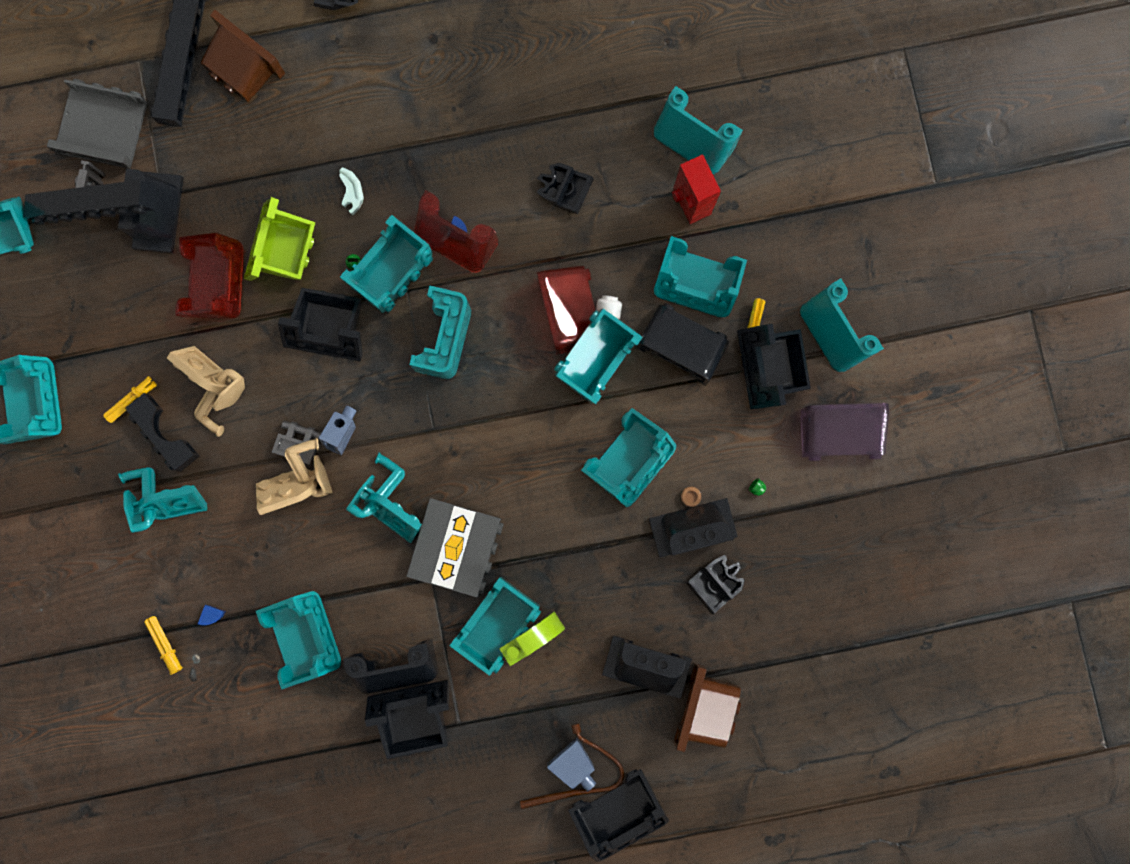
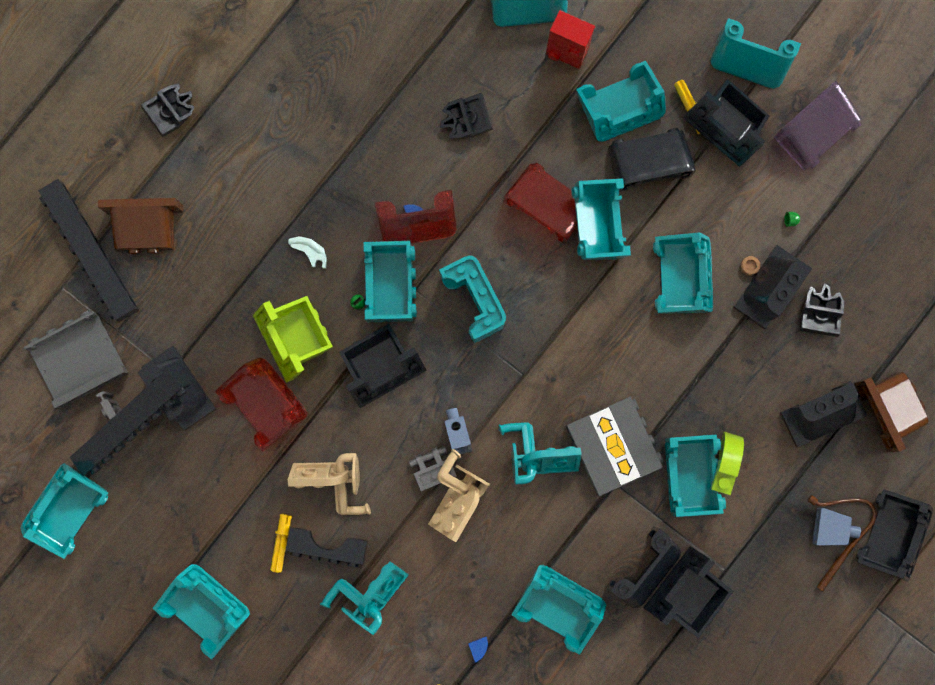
camera: 45 degrees left, 0 degrees up
(610, 304) = (574, 175): white head -> none

